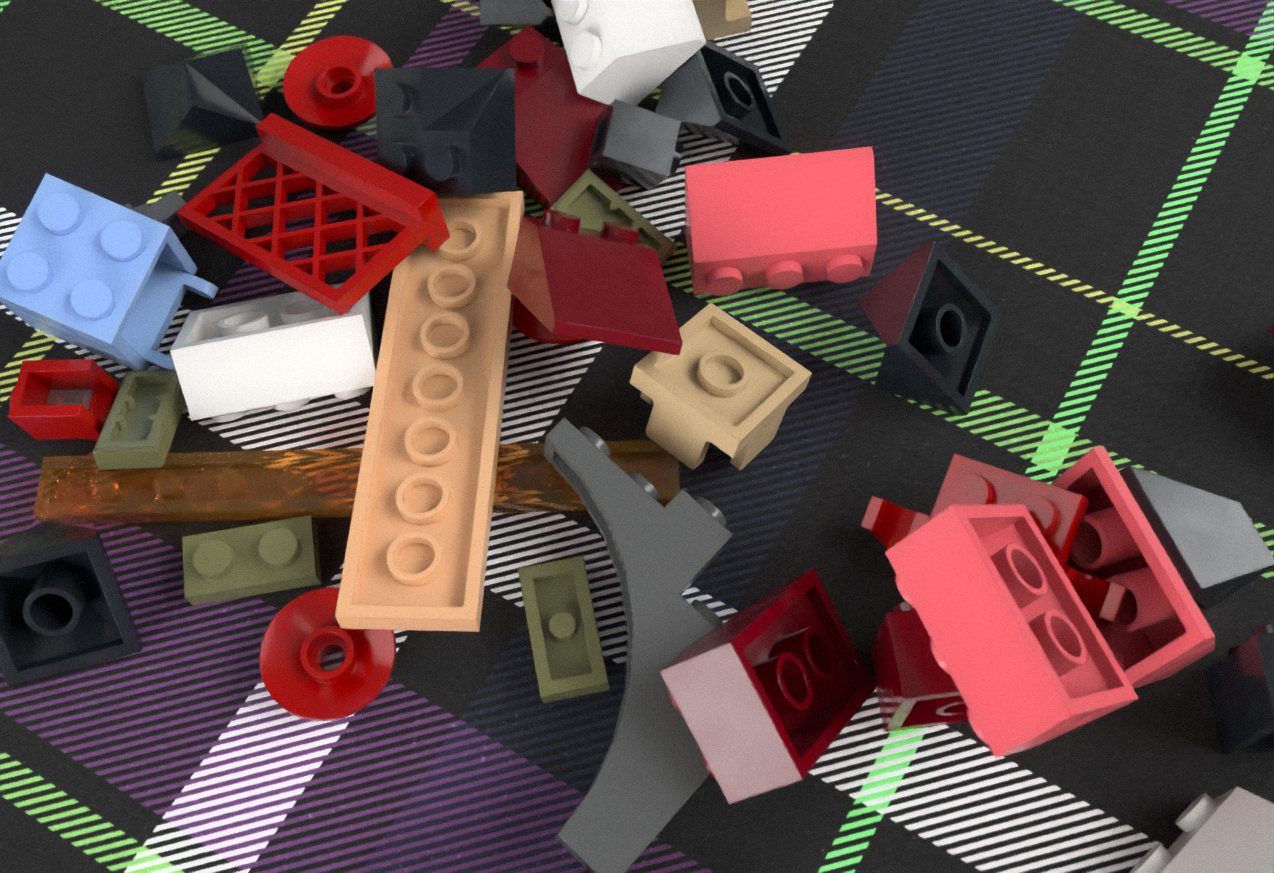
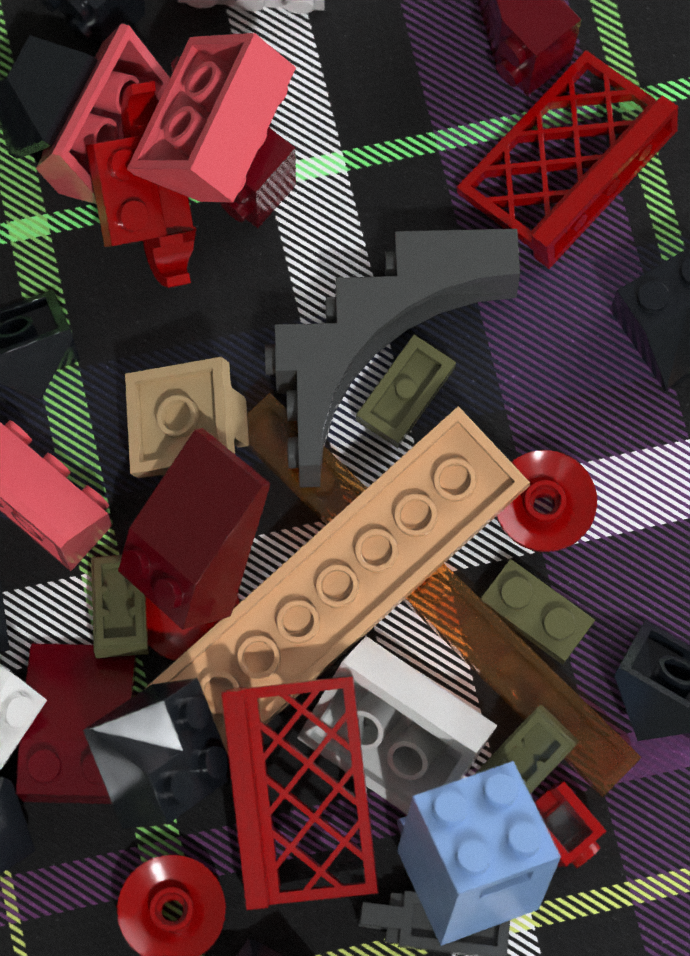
camera: 140 degrees left, 10 degrees up
(635, 145) = (47, 640): black brick -> none
(770, 688) = (341, 231): dark red slope -> none

